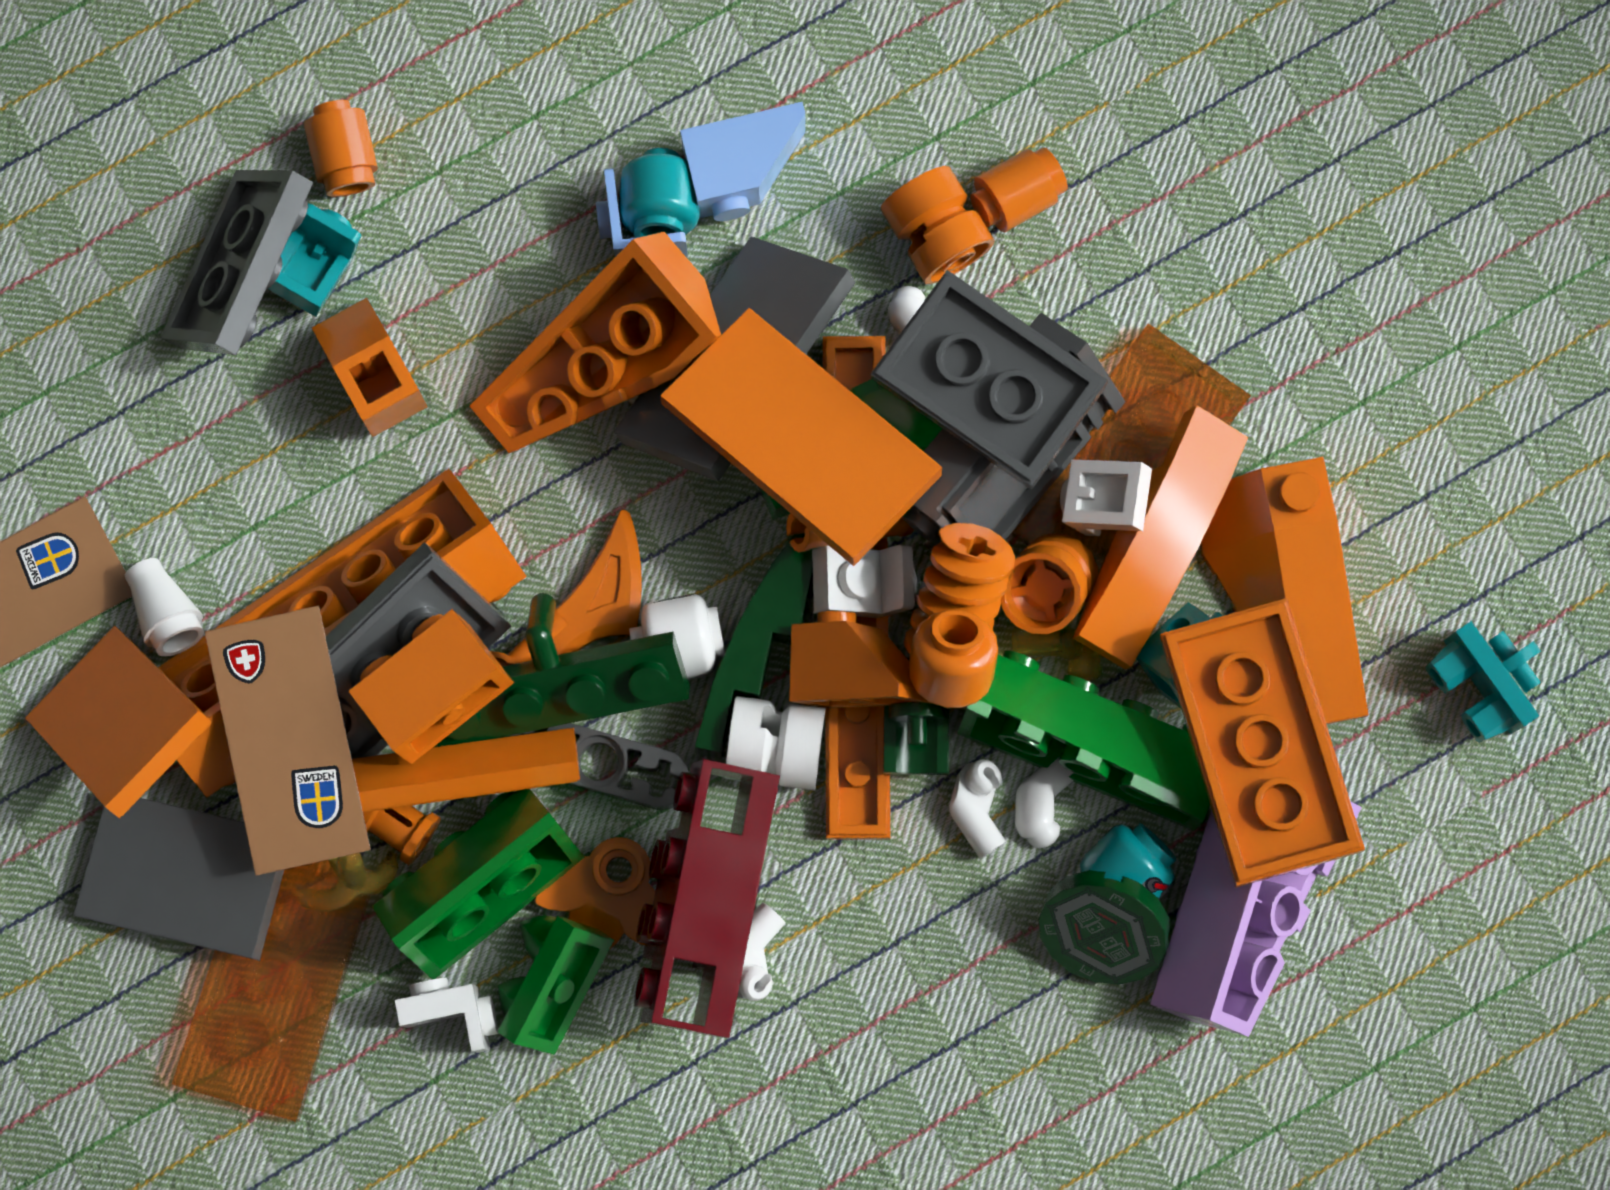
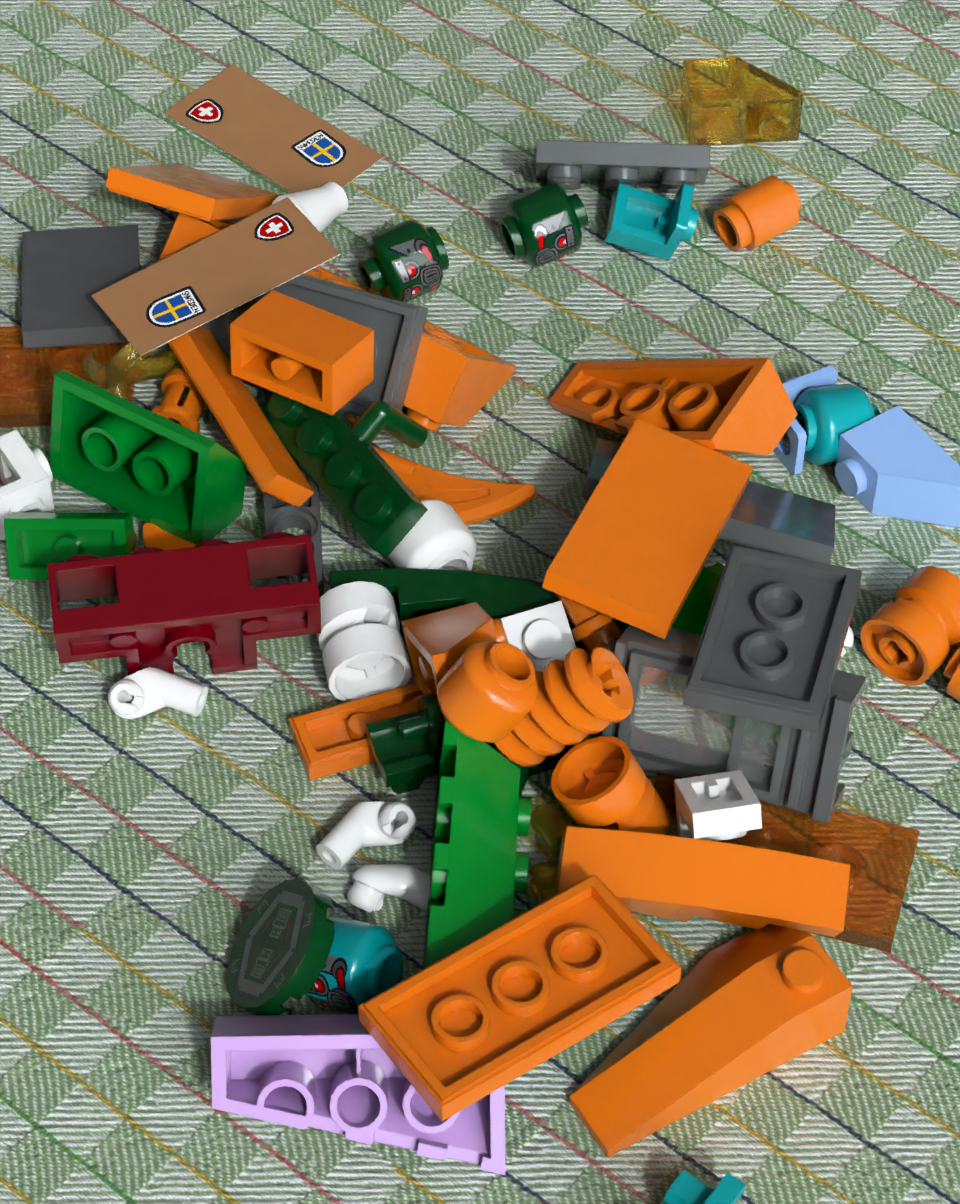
camera: 70 degrees right, 30 degrees down
(169, 106) = (737, 103): none -> clear yellow slope
(280, 371) = (543, 224): none -> dark green head
(282, 533) = (403, 261): none -> dark green head
(369, 367) = (569, 278): orange slope -> none

